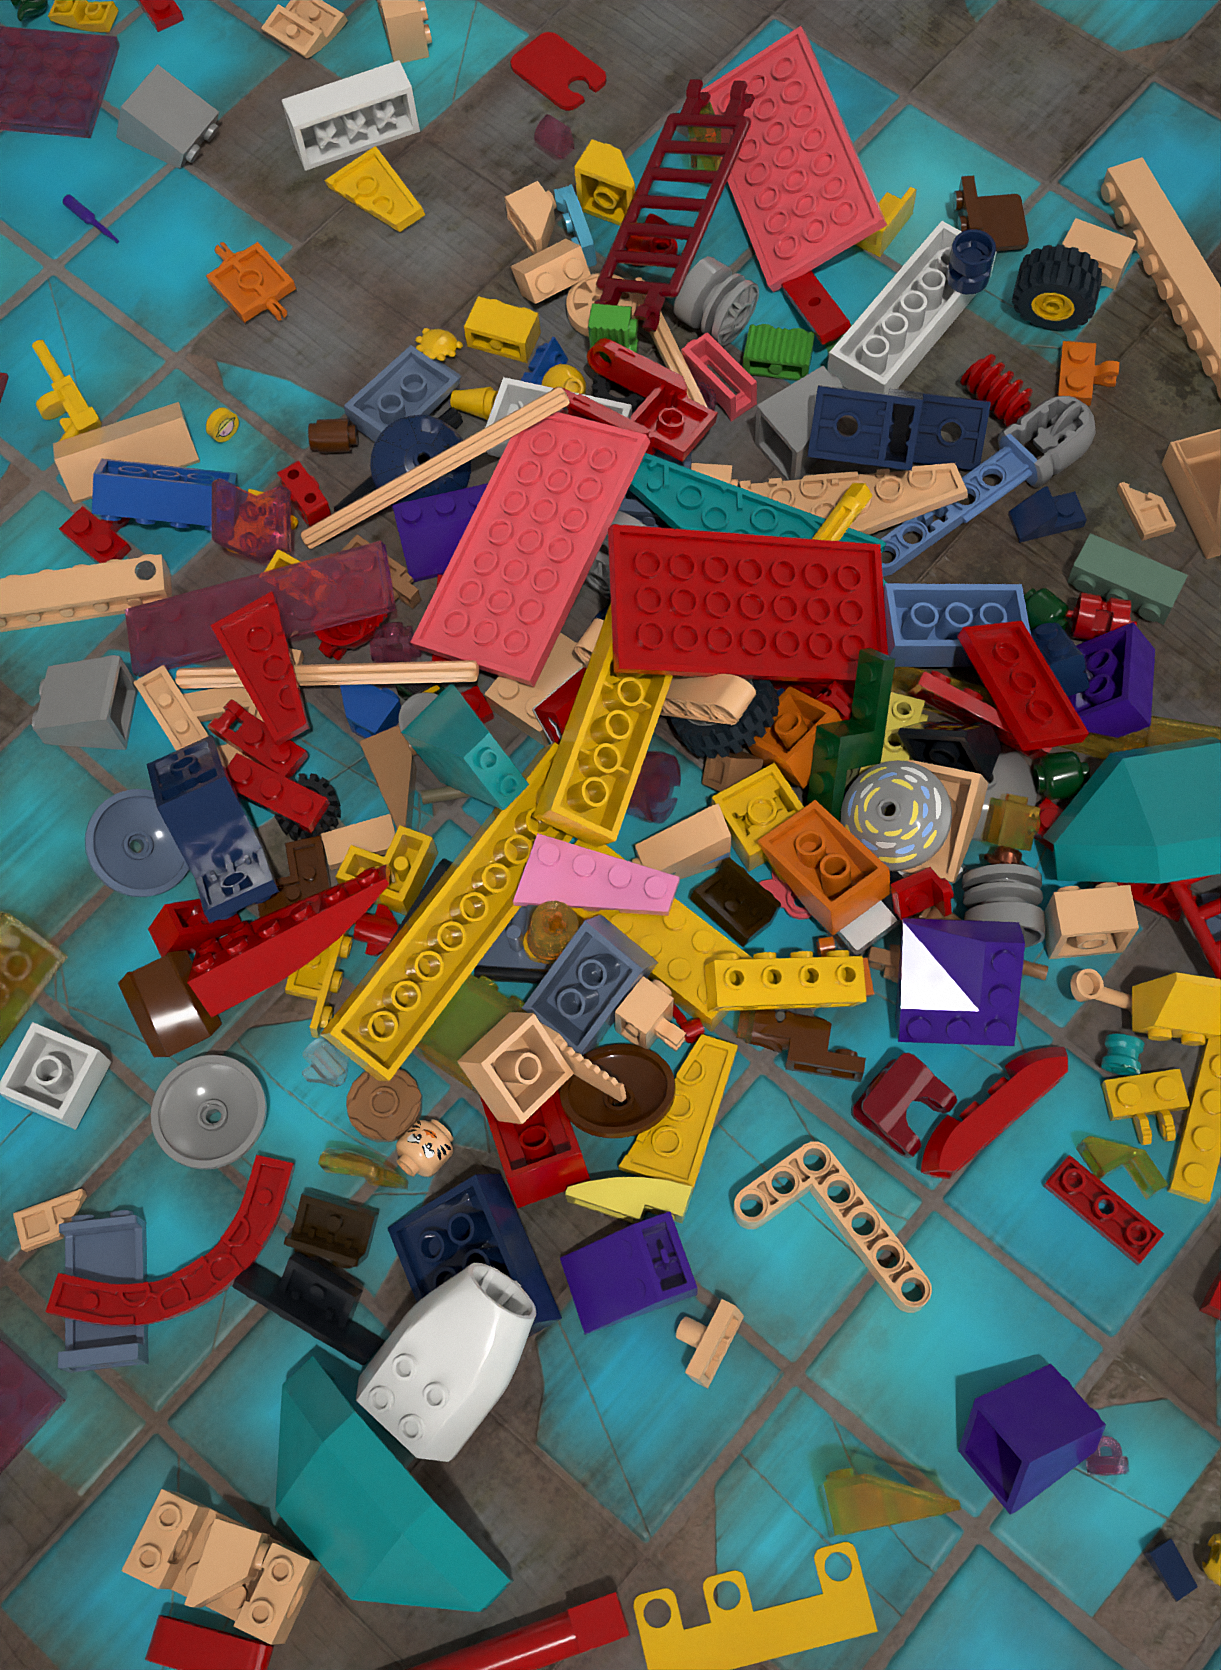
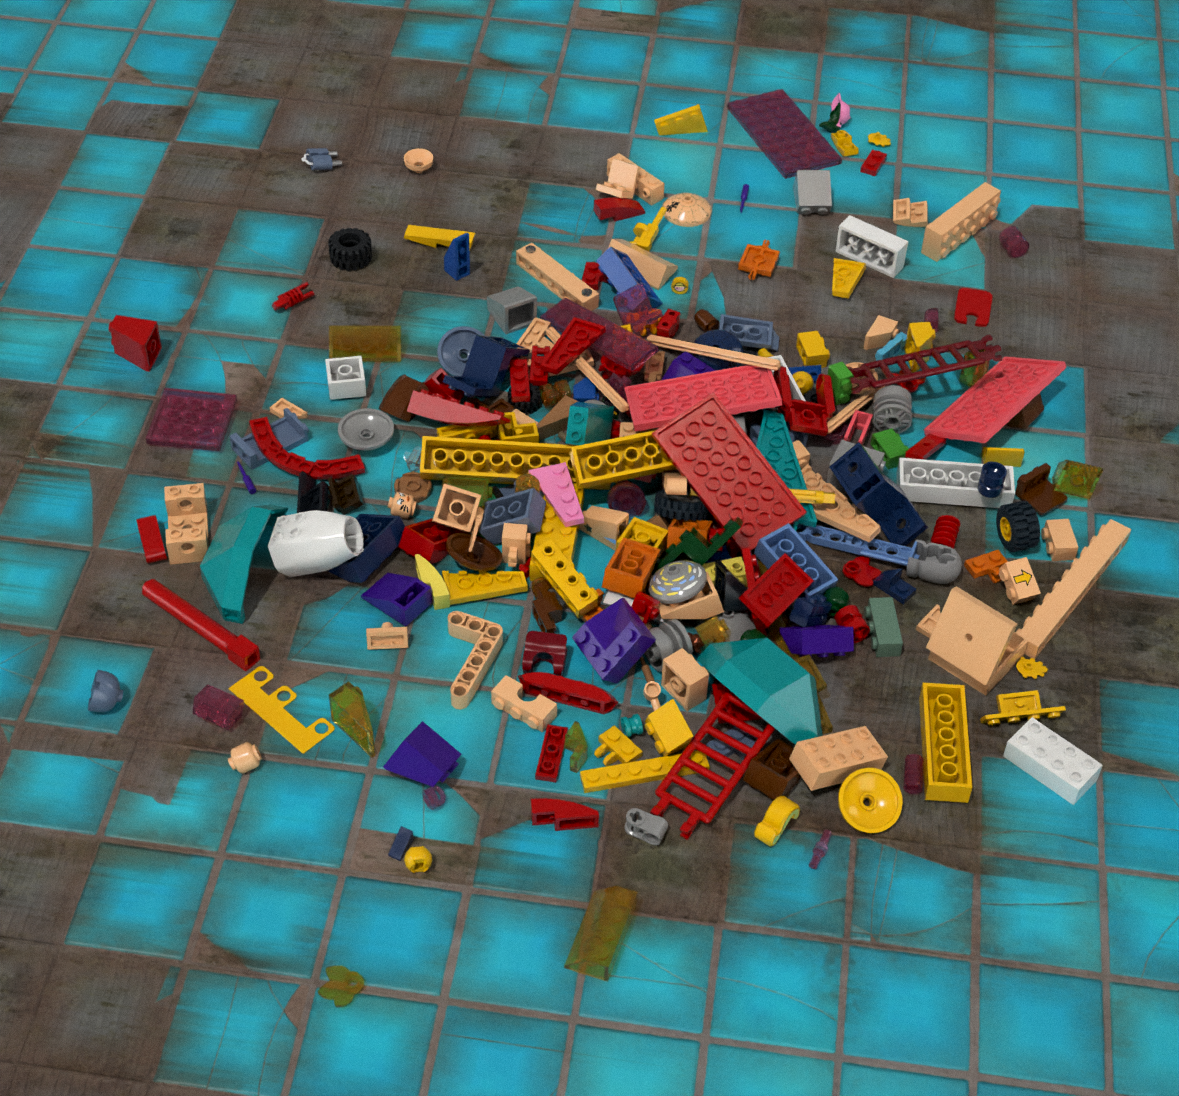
camera: 50 degrees right, 20 degrees down
(51, 309) = (687, 209): none -> light nougat dish
(172, 1387) = (247, 480): none -> dark purple piece
(227, 1561) = (186, 517): light nougat slope -> none
(336, 751) = (552, 394): none -> clear orange wheel
(352, 1163) = (379, 487): clear yellow brick -> none
(437, 343) = (785, 333): yellow piece -> none
(551, 271) = (856, 349): light nougat brick -> none
(737, 902) = (594, 556): dark brown bracket -> none
(957, 1214) = (535, 713): none -> light nougat arch
(996, 540) = (861, 571): none -> red plate
(1006, 160) = (1076, 478): none -> clear yellow slope
(1152, 352) = (1019, 581): none -> light nougat brick

